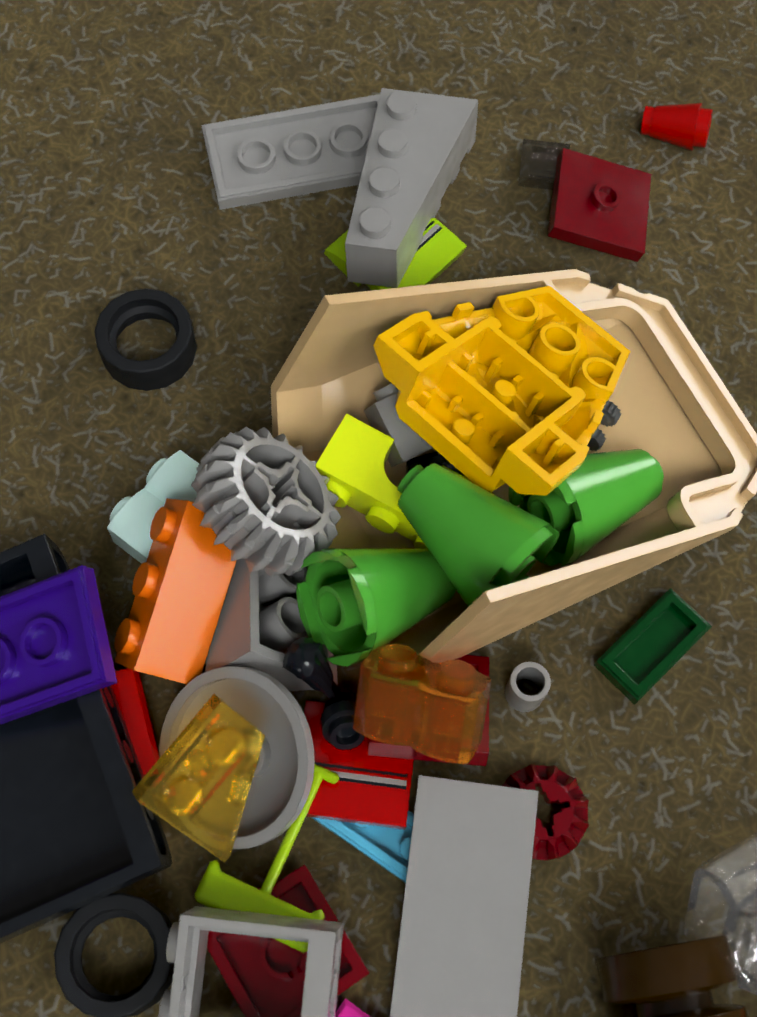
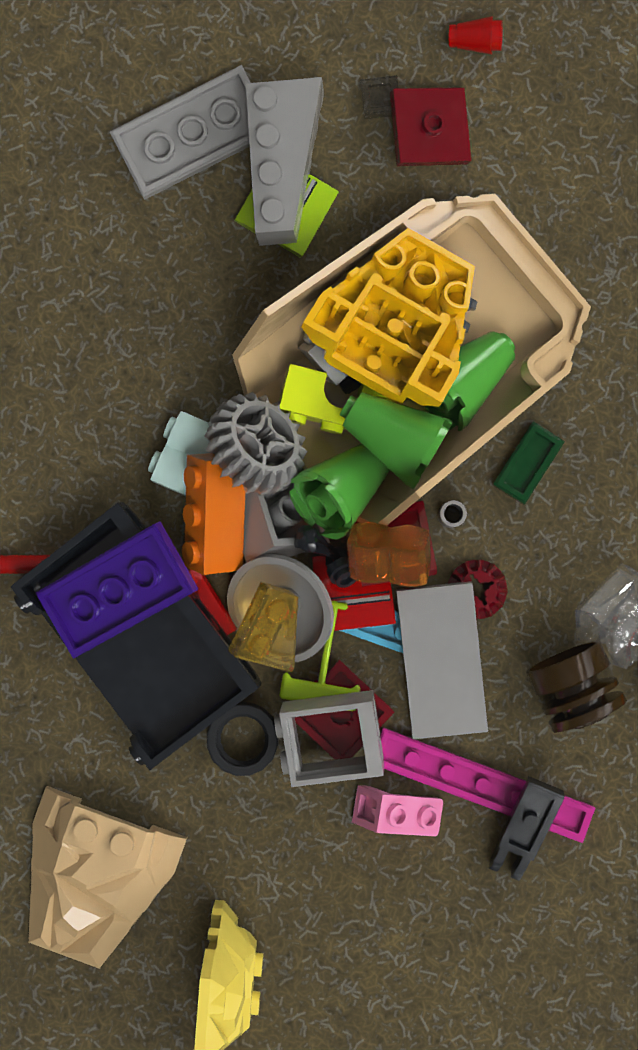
camera: 10 degrees left, 20 degrees up
(138, 306) = (106, 308): black tyre -> none

